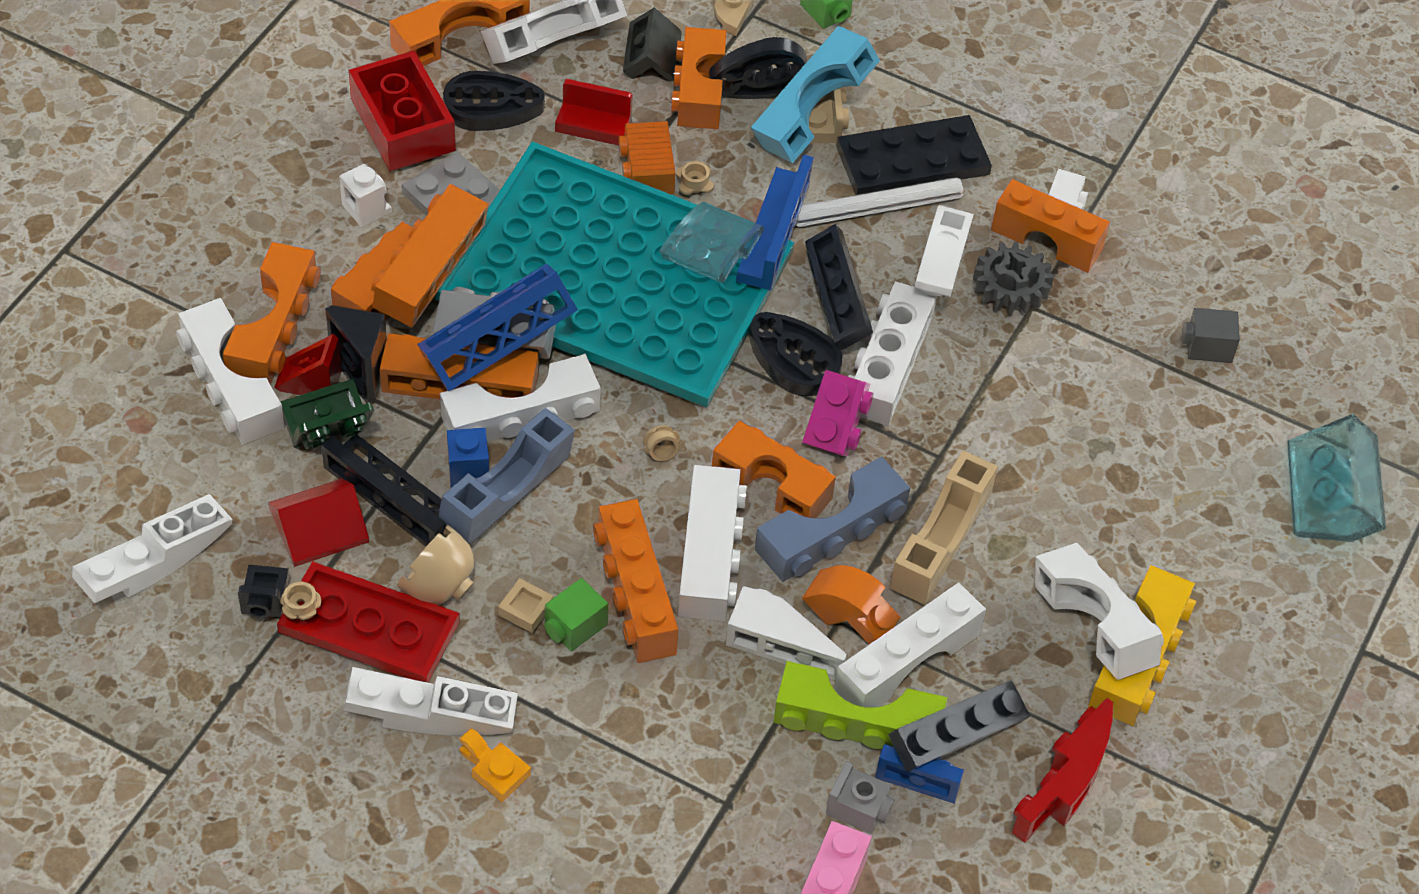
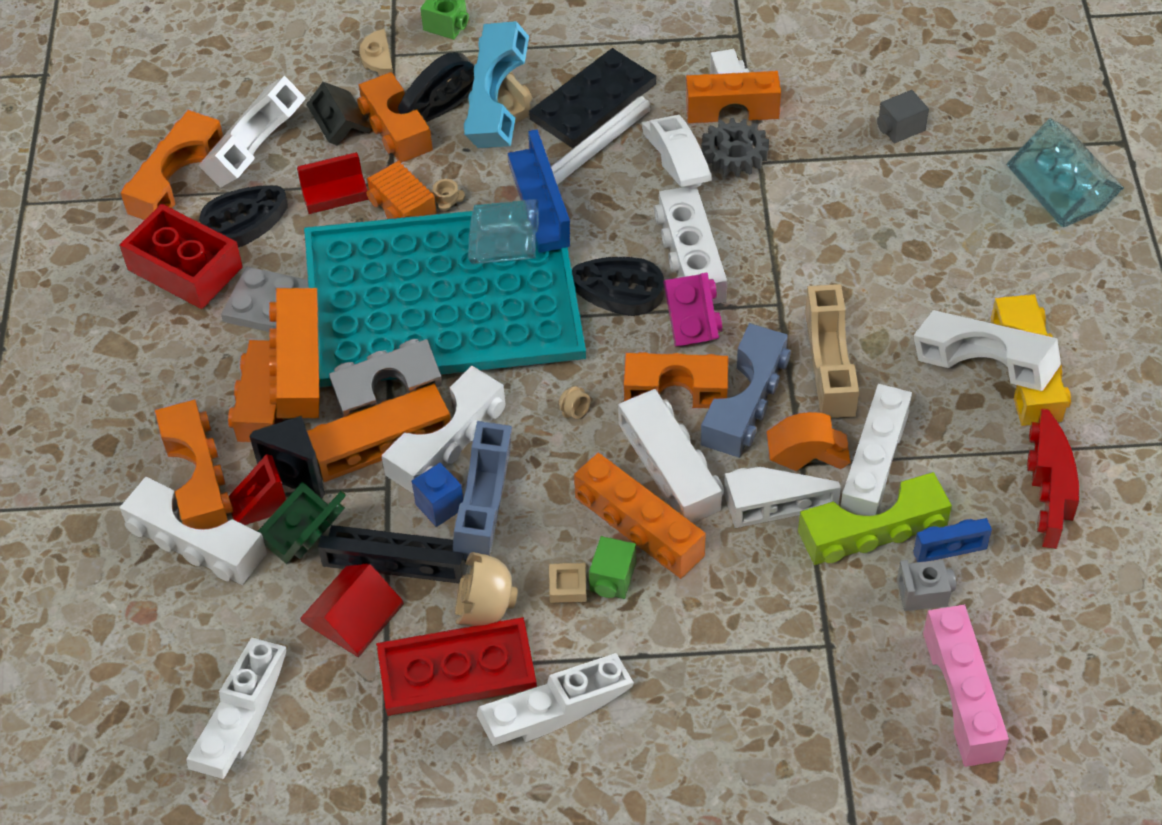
camera: 25 degrees left, 0 degrees up
(263, 591) = (354, 689): black bracket -> none
(297, 593) = (391, 671): tan plate -> none
(364, 195) = (198, 328): white brick -> none
(490, 315) = (385, 376): blue fence -> none
(495, 769) = (642, 721): light orange plate -> none
(838, 287) = (618, 218): black plate -> none
(959, 725) = (958, 488): plate -> none

